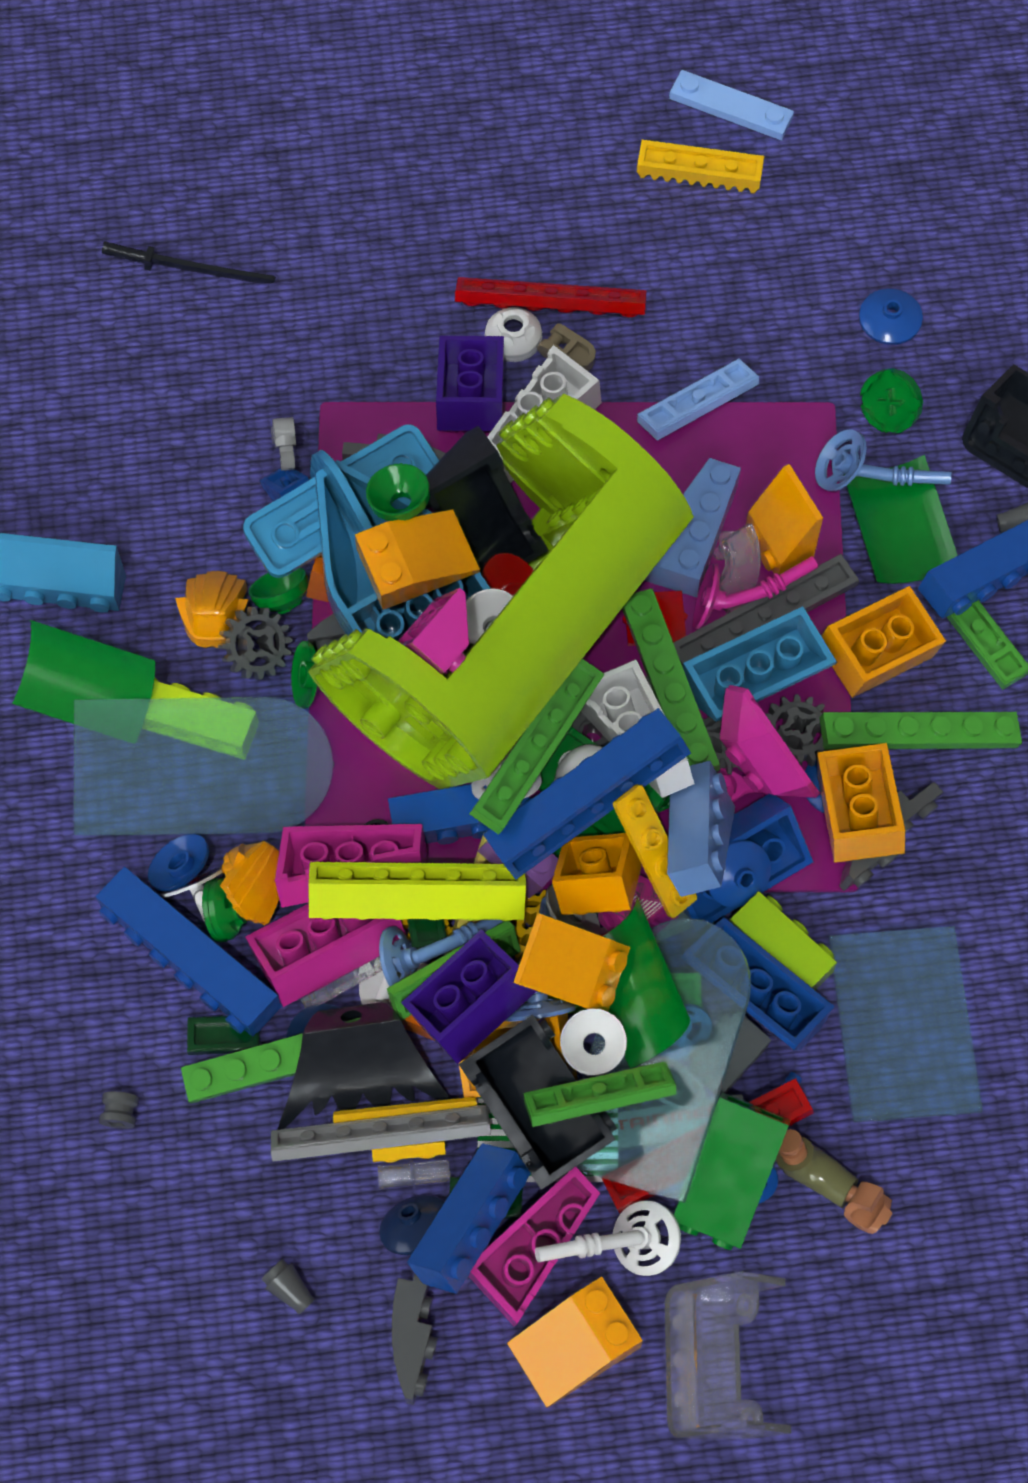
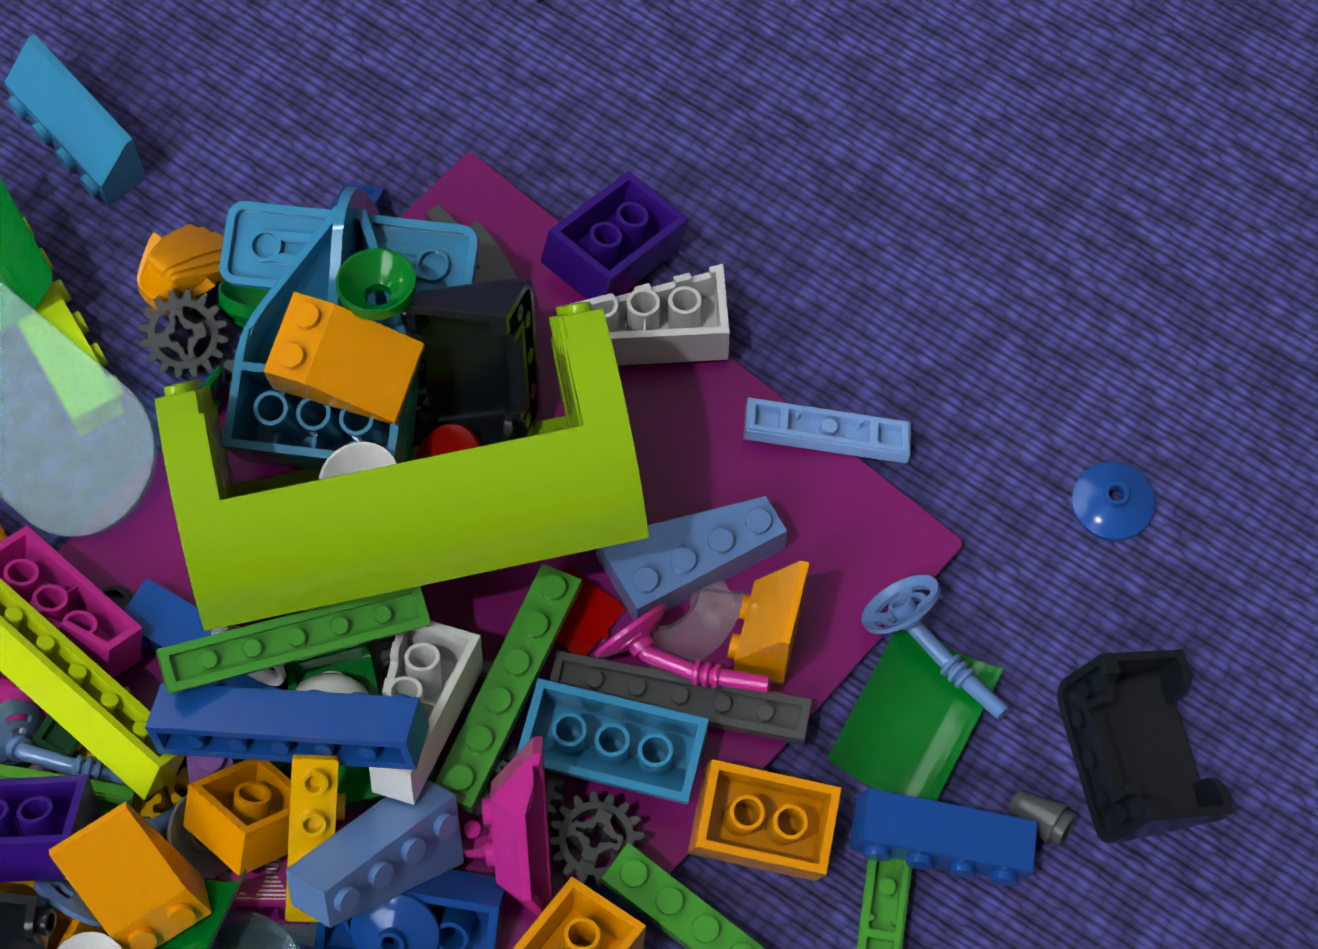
camera: 40 degrees right, 0 degrees up
(284, 438) = (389, 155): light grey bar -> none
(440, 632) = (263, 454): dark pink slope -> none
(519, 344) = (720, 241): white piece -> none
(547, 295) = (785, 217): red plate -> none
(577, 347) = (755, 293): dark tan plate -> none
(700, 165) = (1061, 198): yellow gear -> none
(731, 104) = (1155, 162): light blue plate -> none
(891, 400) = (1021, 586): green tile -> none

